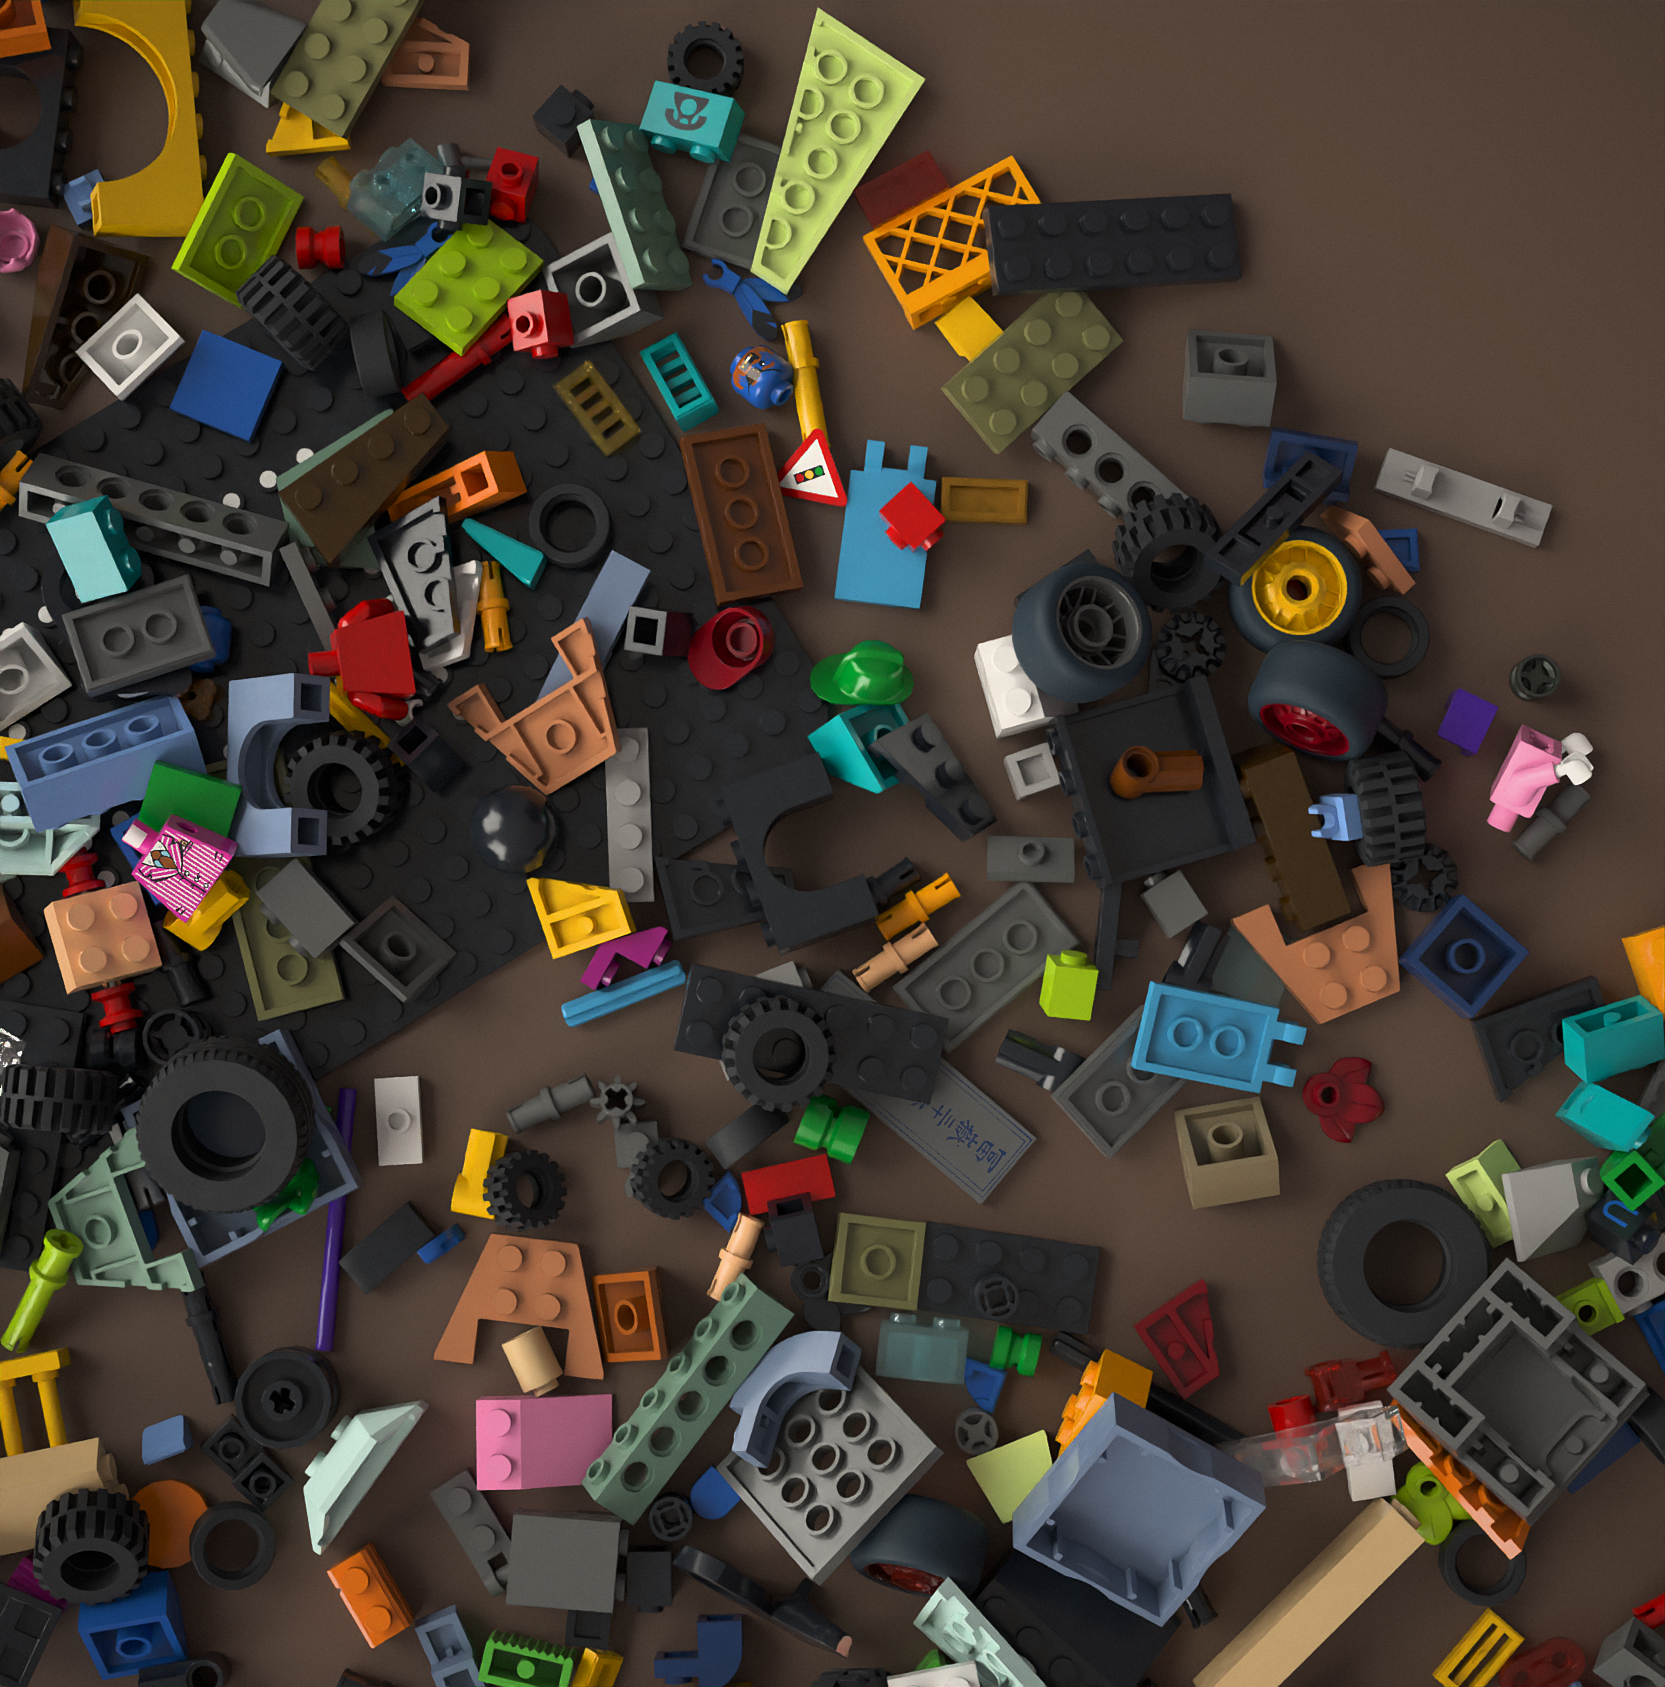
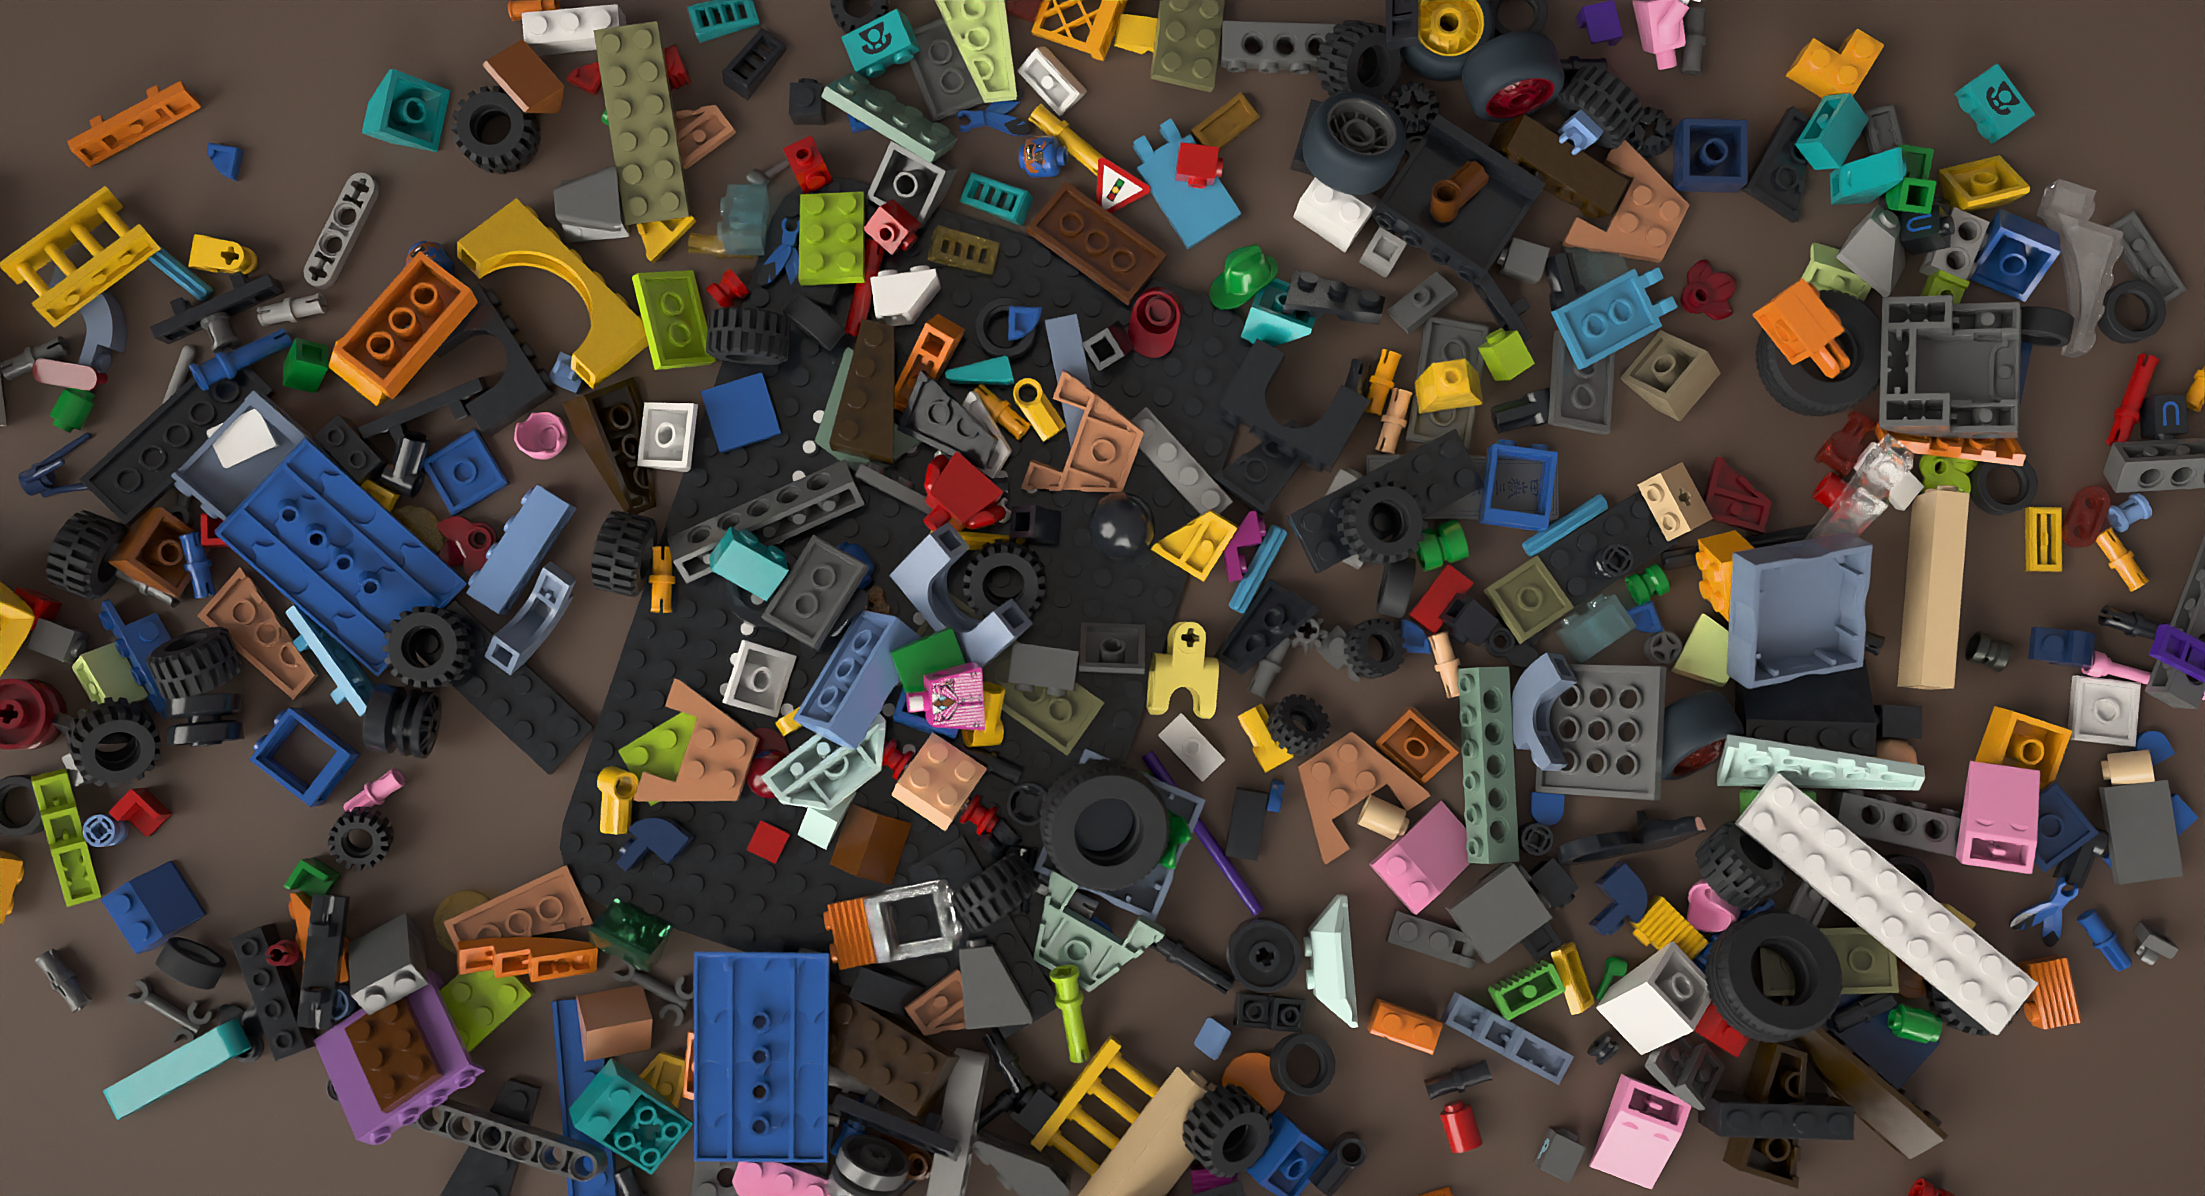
camera: 45 degrees left, 0 degrees up
(455, 198) = (785, 195): black brick -> none
(457, 1032) = (1183, 667): none -> light yellow piece
(488, 405) = (903, 296): none -> white slope
(531, 641) = (1040, 411): none -> yellow piece
(535, 51) = (751, 82): none -> black slope
(577, 1058) = (1264, 626): none -> black wing
(589, 532) = (1022, 321): none -> blue tile
(842, 305) = (1051, 80): none -> white slope
(977, 973) = (1448, 387): none -> yellow slope
(983, 1217) = (1565, 525): none -> dark azure axle
(1011, 1114) = (1513, 519): none -> blue window
(1115, 1288) = (1675, 501): none -> tan brick
(1392, 1219) = (1804, 327): none -> orange brick

